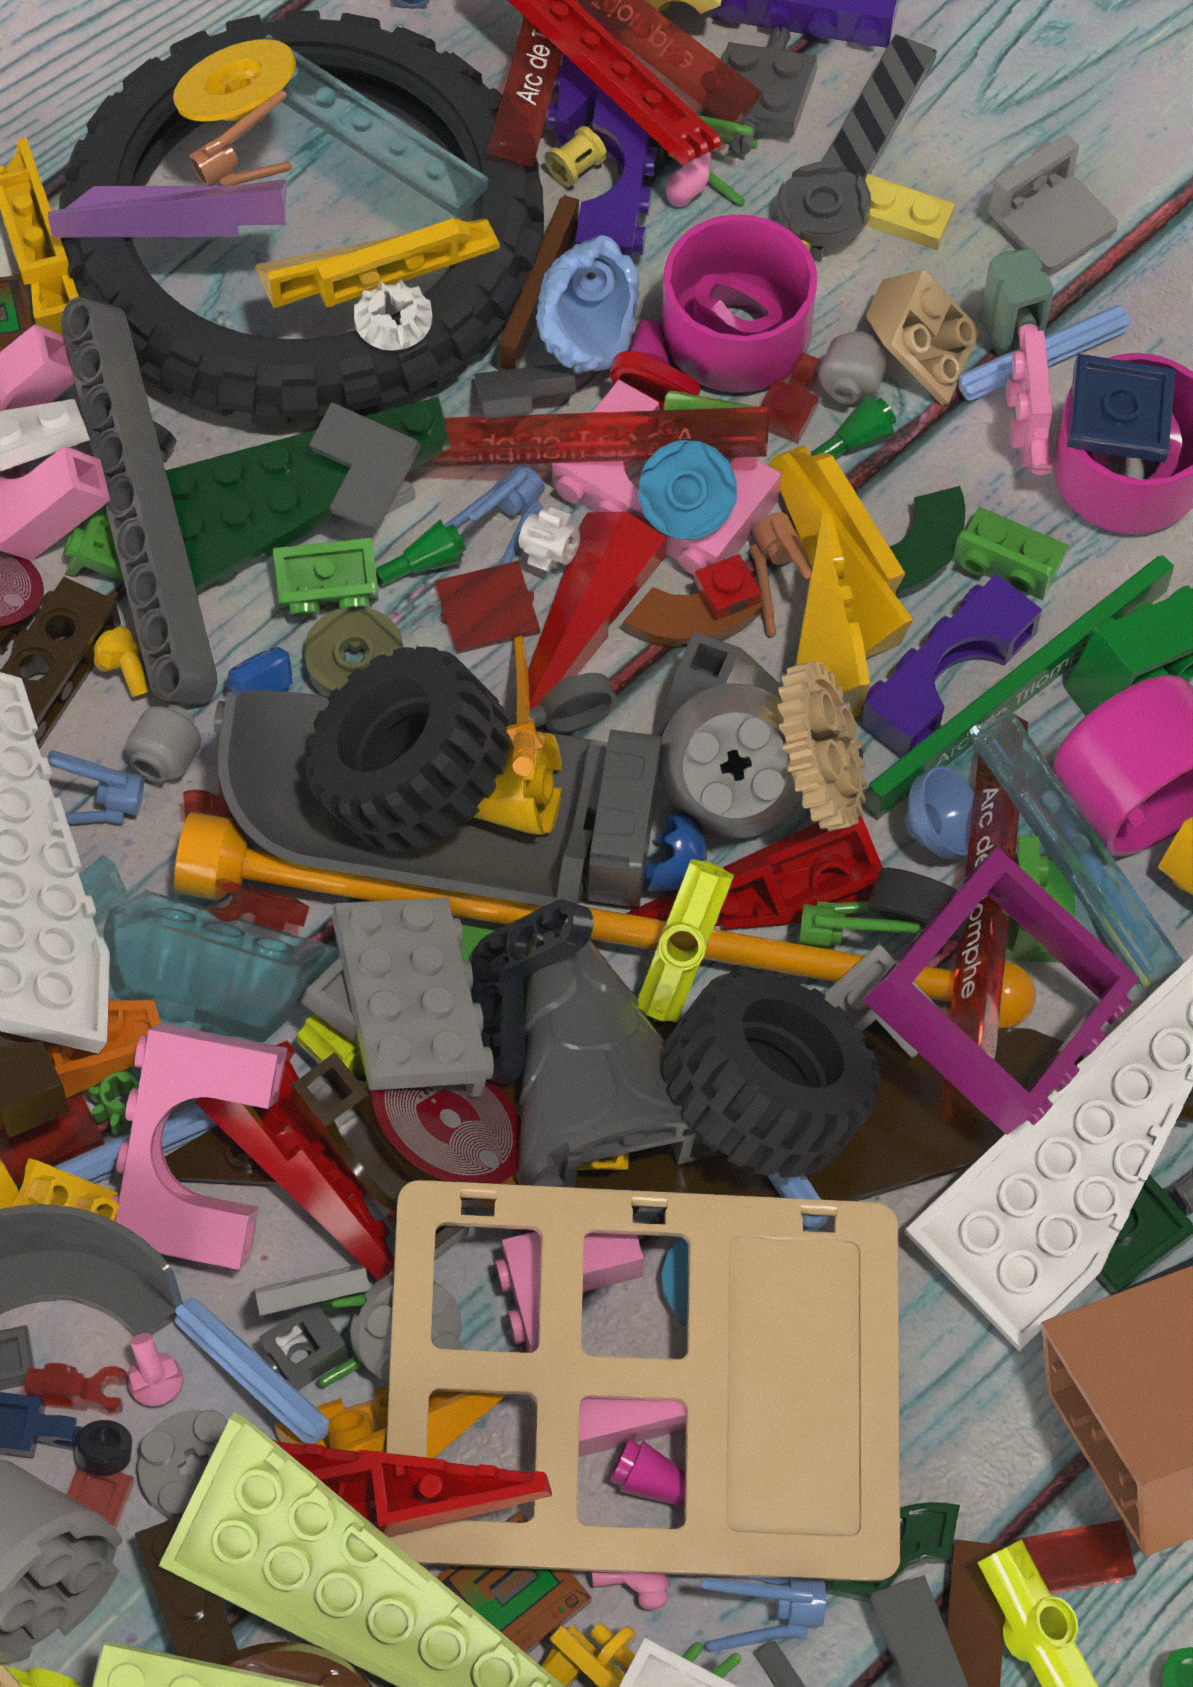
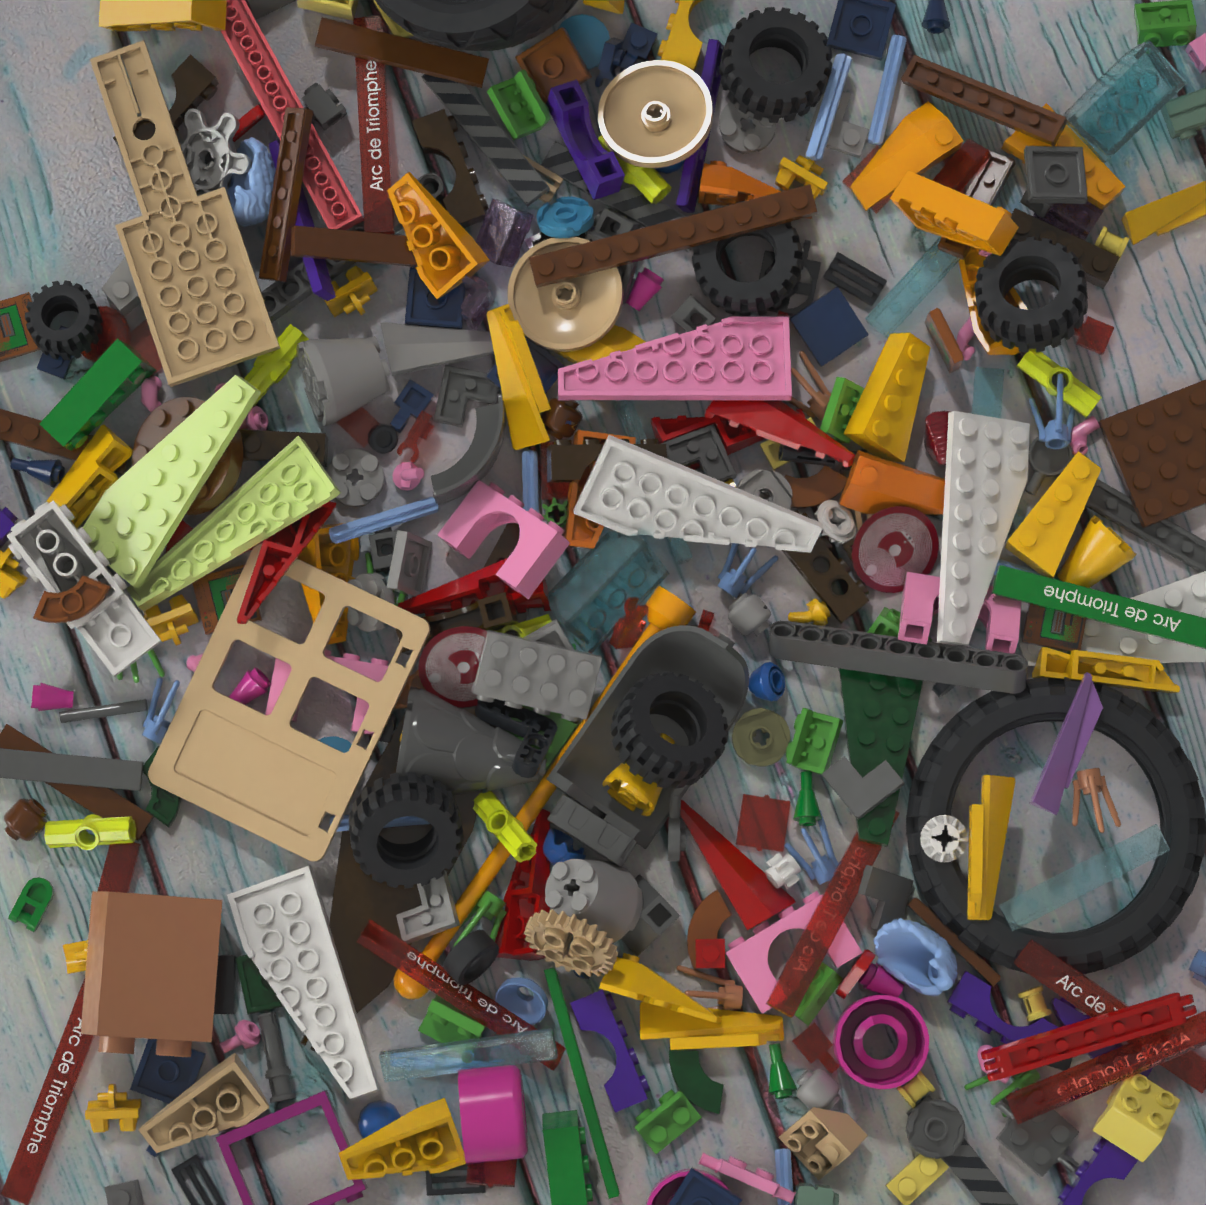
camera: 120 degrees right, 20 degrees up
(56, 1187) = (506, 465): yellow hips -> none
(234, 80) = (1136, 813): yellow hat -> none
(523, 732) = (645, 790): light orange sword -> none
(687, 490) = (765, 951): dark azure tile -> none
(953, 1051) = (432, 943): magenta window -> none

